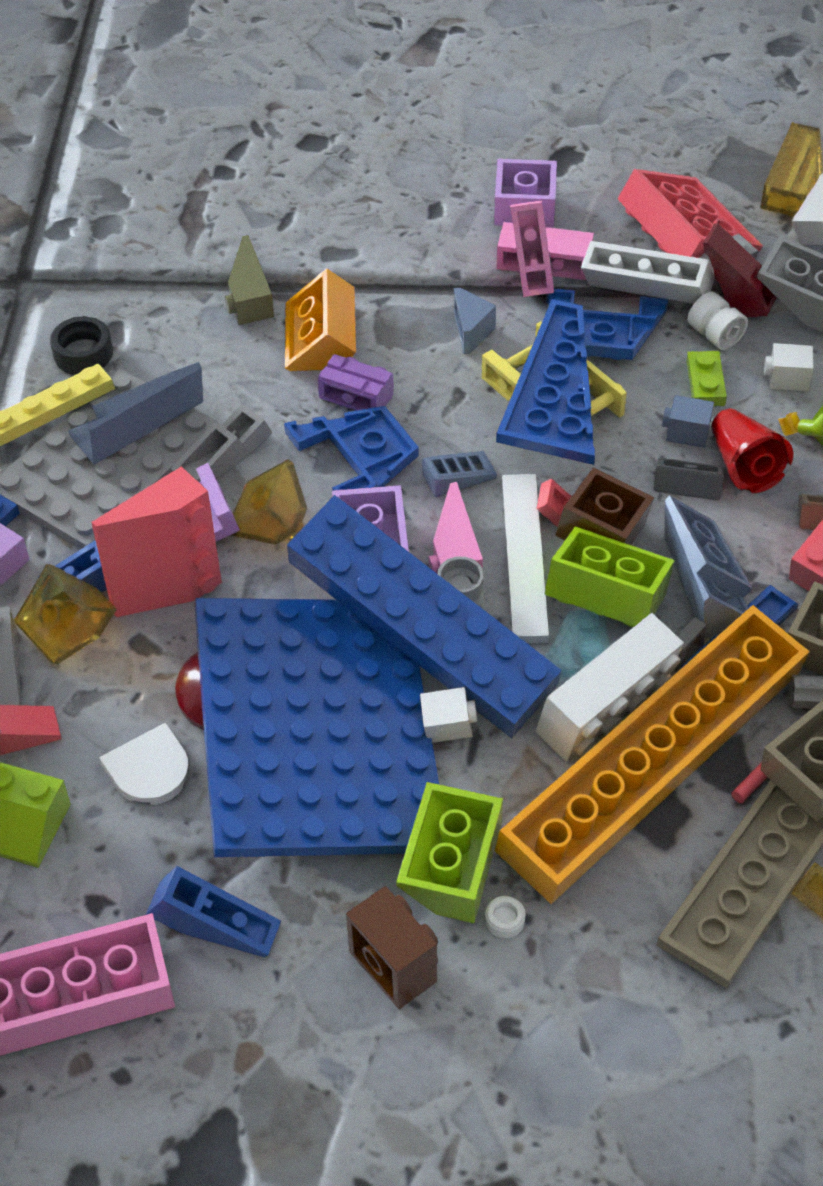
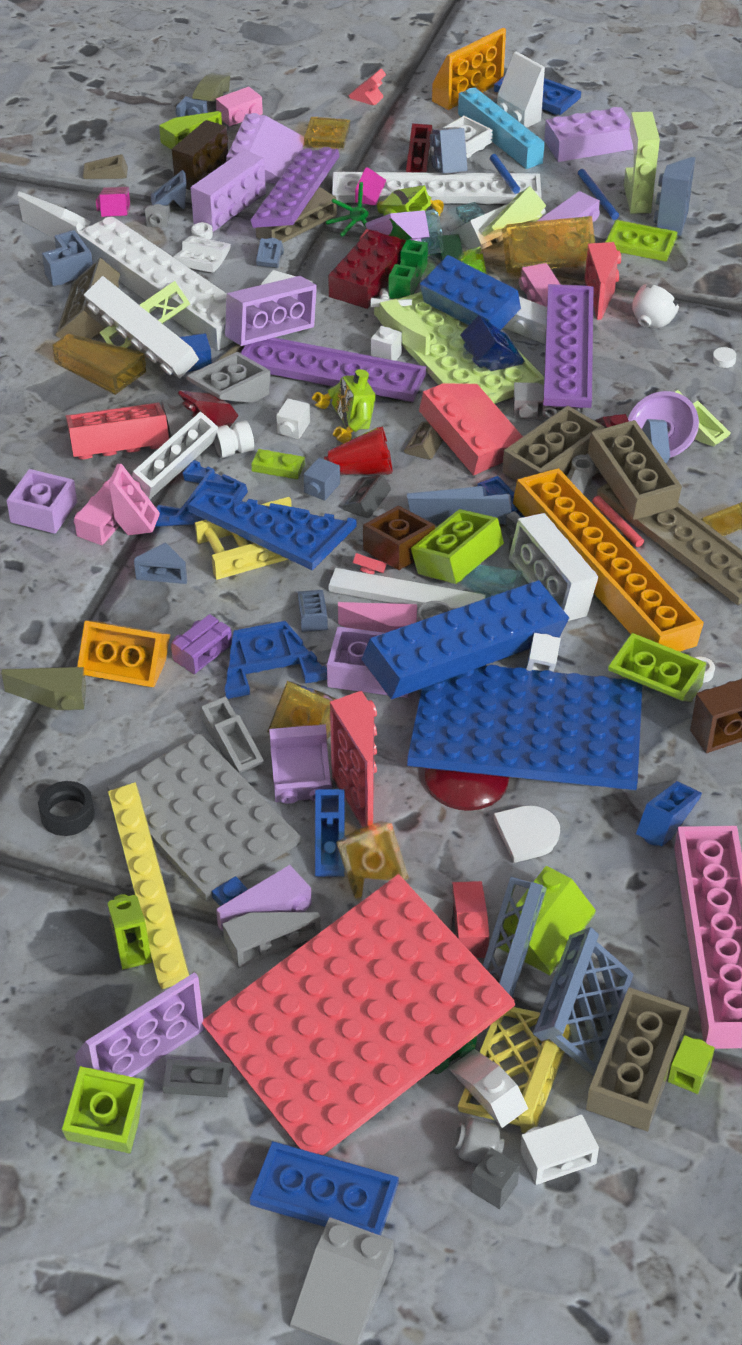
camera: 75 degrees left, 5 degrees down
(139, 412) = (177, 771): sand blue slope -> none

